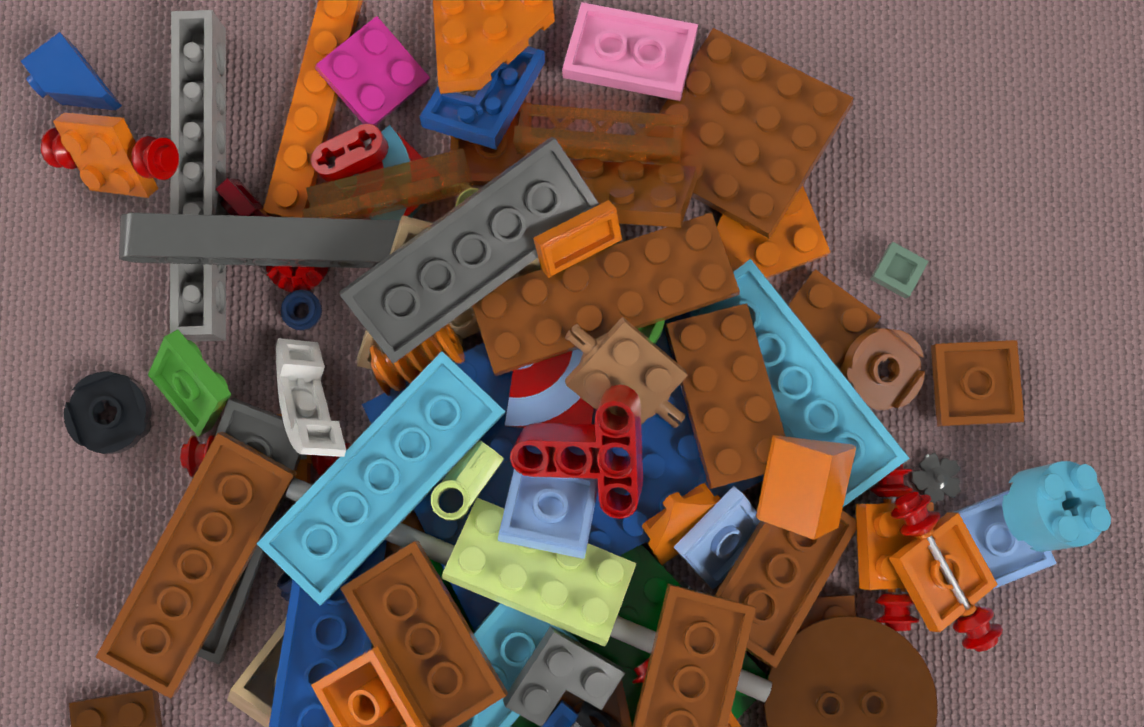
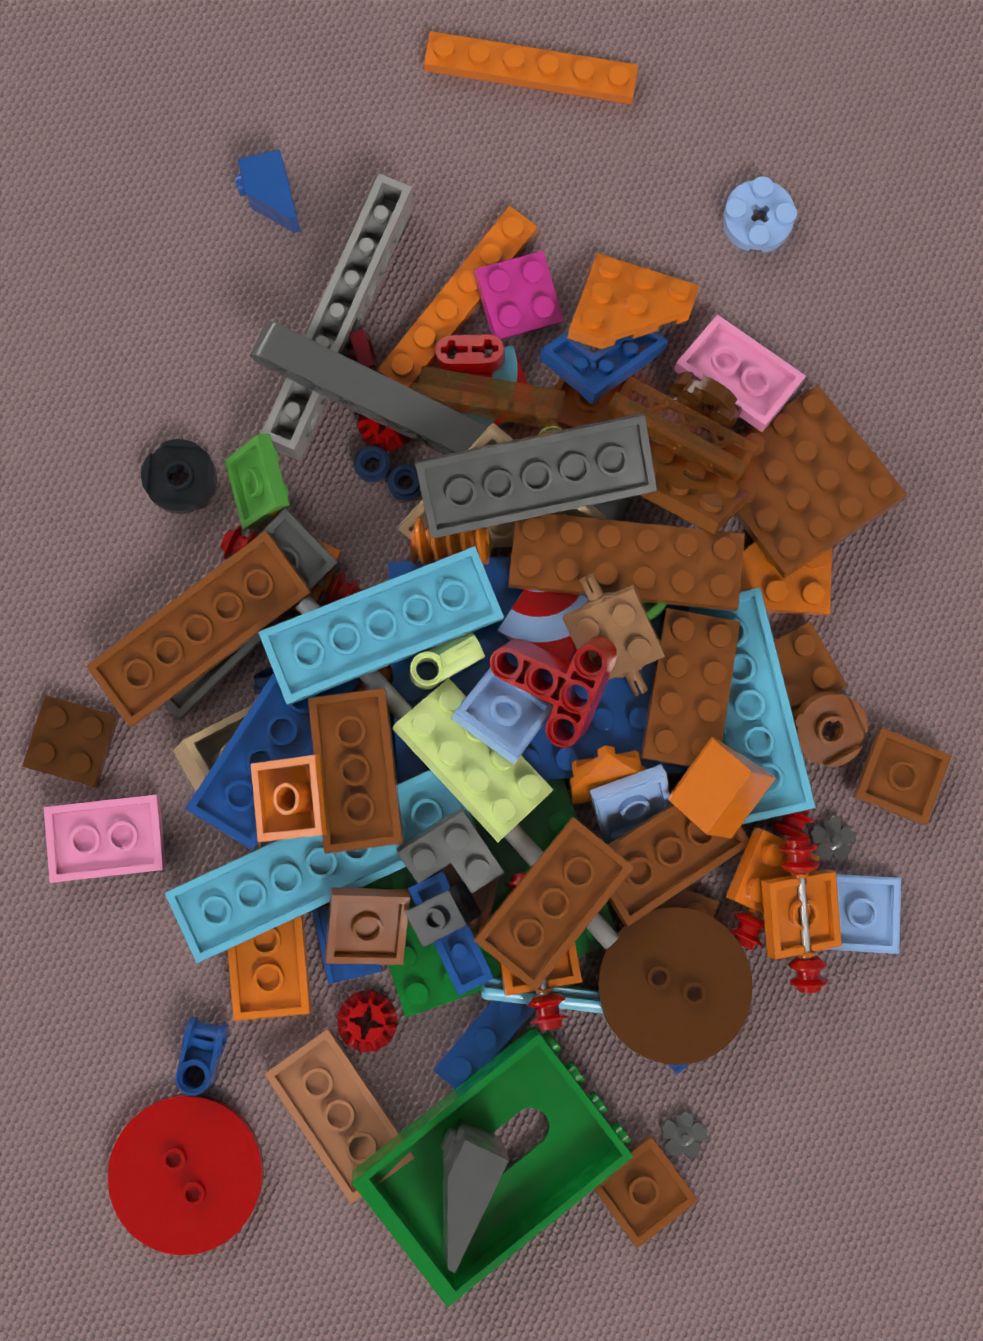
camera: 20 degrees right, 0 degrees up
(108, 154) = (276, 267): orange plate -> none
(303, 399) = (343, 536): white slope -> none
(330, 316) = (396, 475): none -> dark blue plate
(578, 238) = (626, 505): orange tile -> none
(609, 91) = (706, 398): none -> reddish brown plate
(899, 270) = (880, 654): sand green plate -> none
(1056, 506) = (919, 904): medium azure brick -> none

